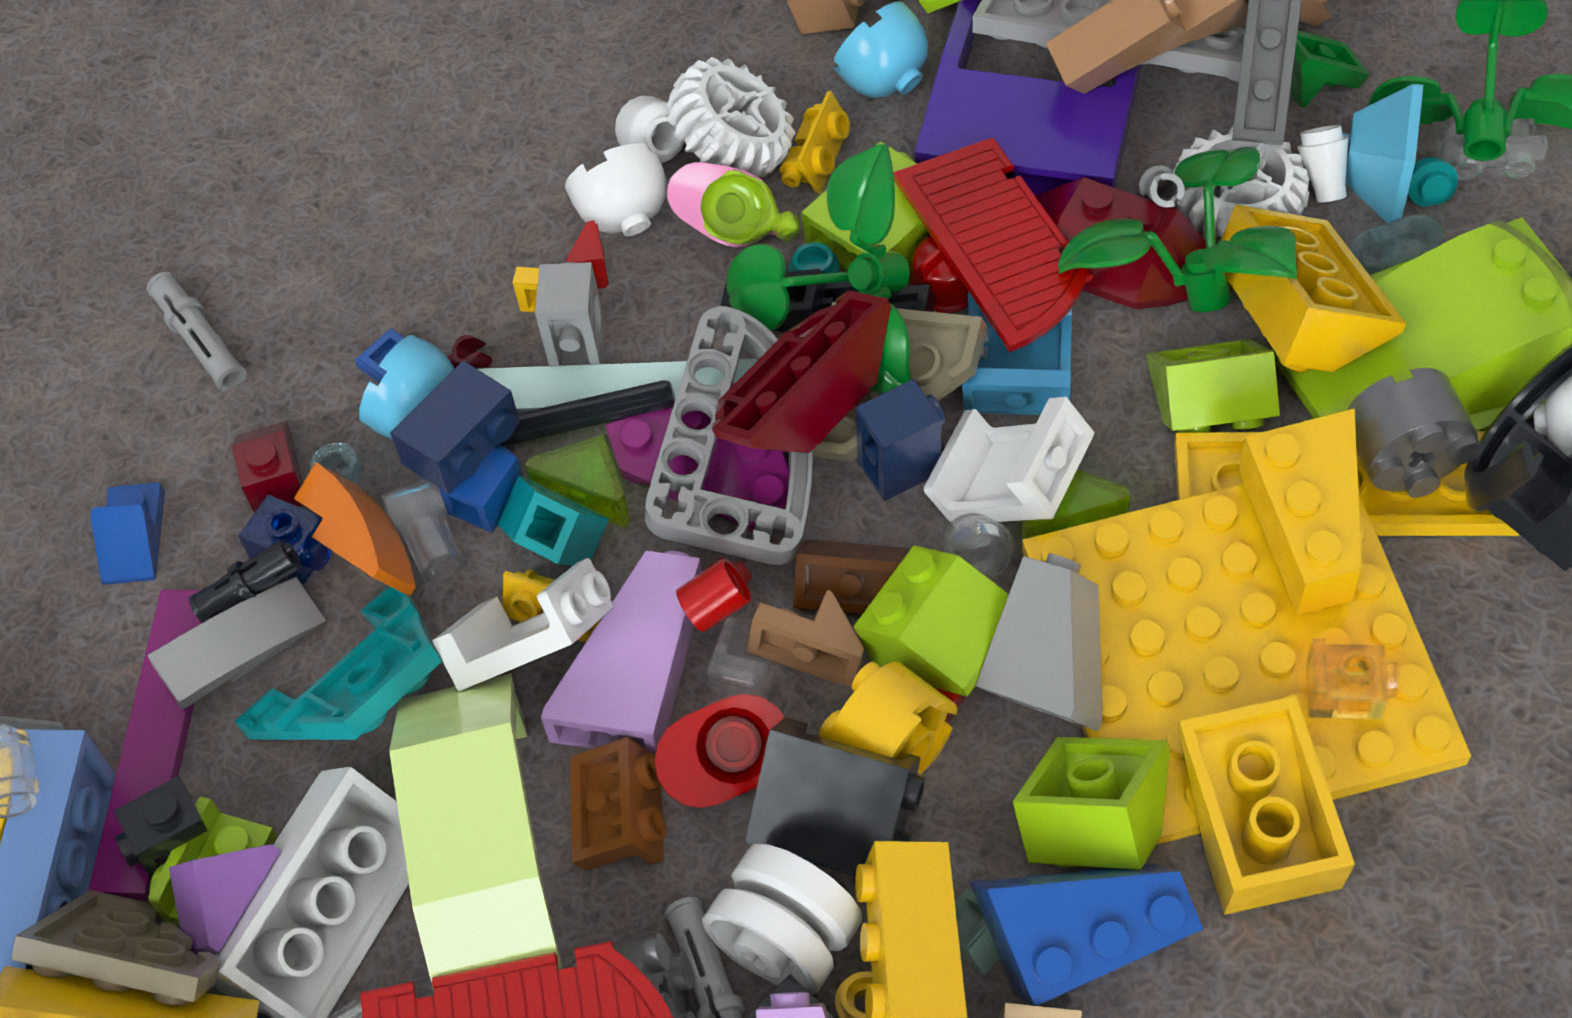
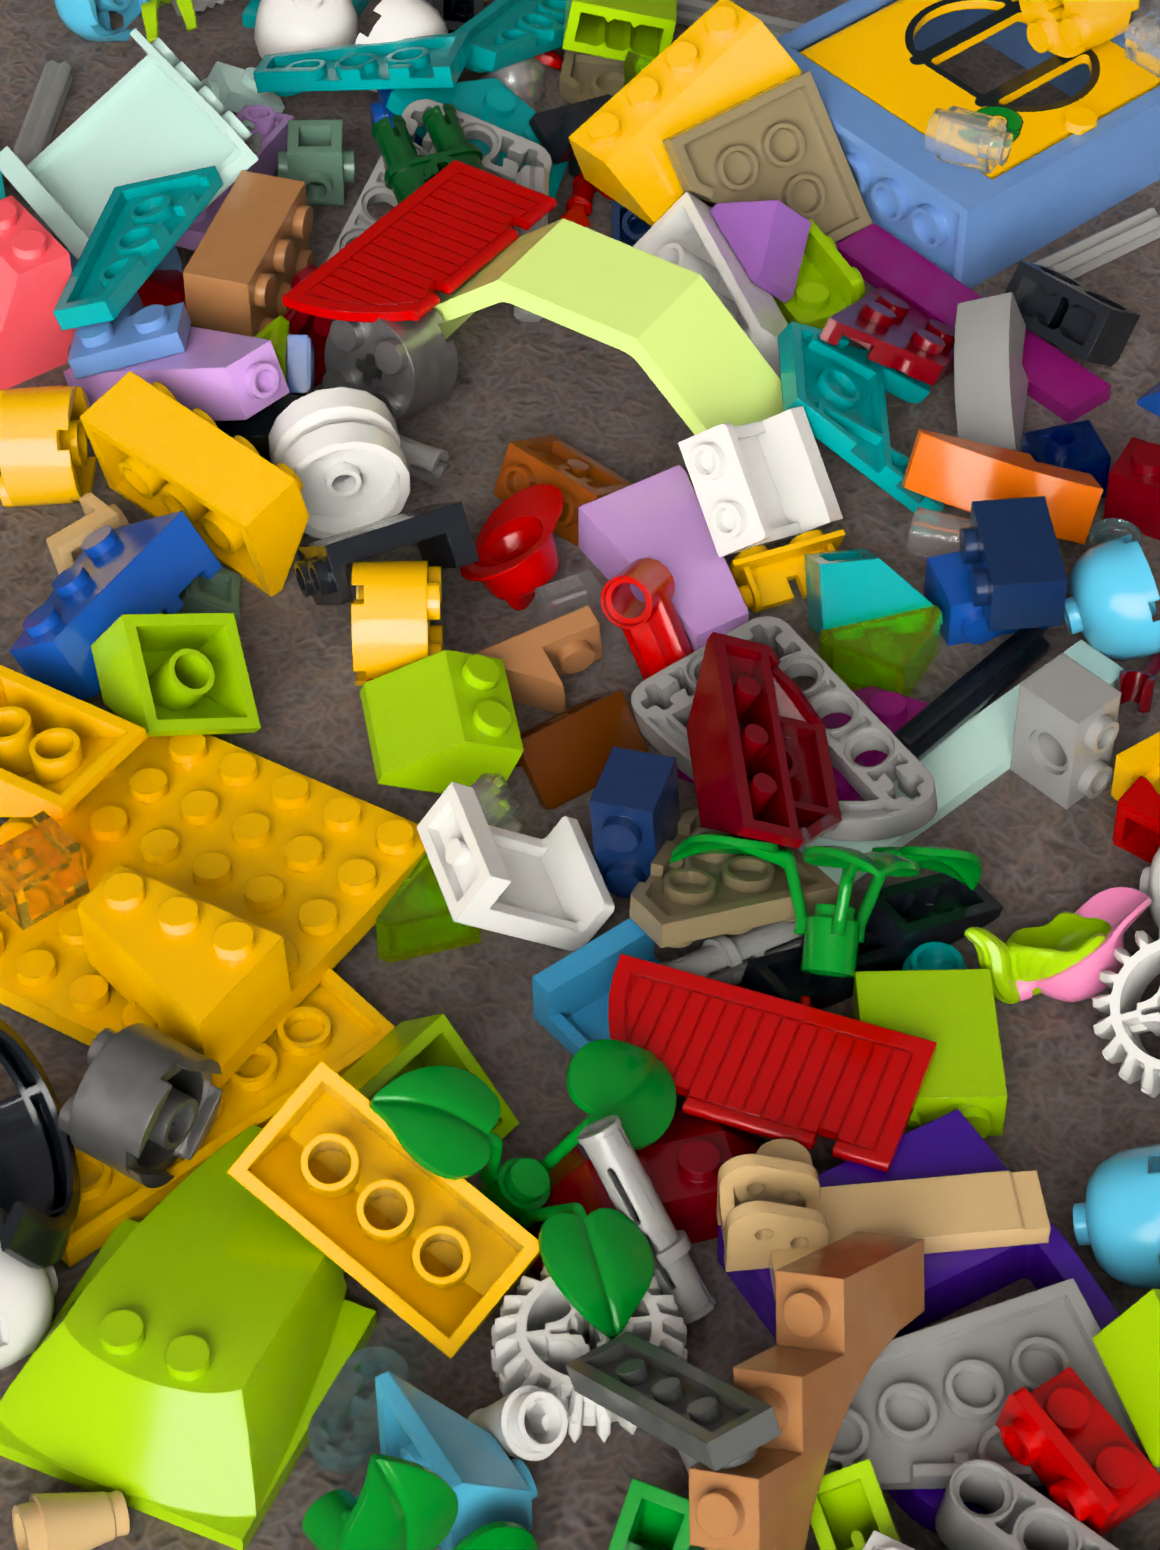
camera: 130 degrees right, 10 degrees down
(108, 654) = (1071, 314): none -> black brick
(158, 824) = (861, 243): black bracket -> none
(245, 580) = (1032, 397): black pin -> none
(249, 720) = (896, 335): none -> dark red wing
(818, 144) = (1088, 1095): yellow hinge -> none
(1049, 643) = (316, 745): light grey slope -> none
(1072, 138) = (779, 1212): none -> tan piece

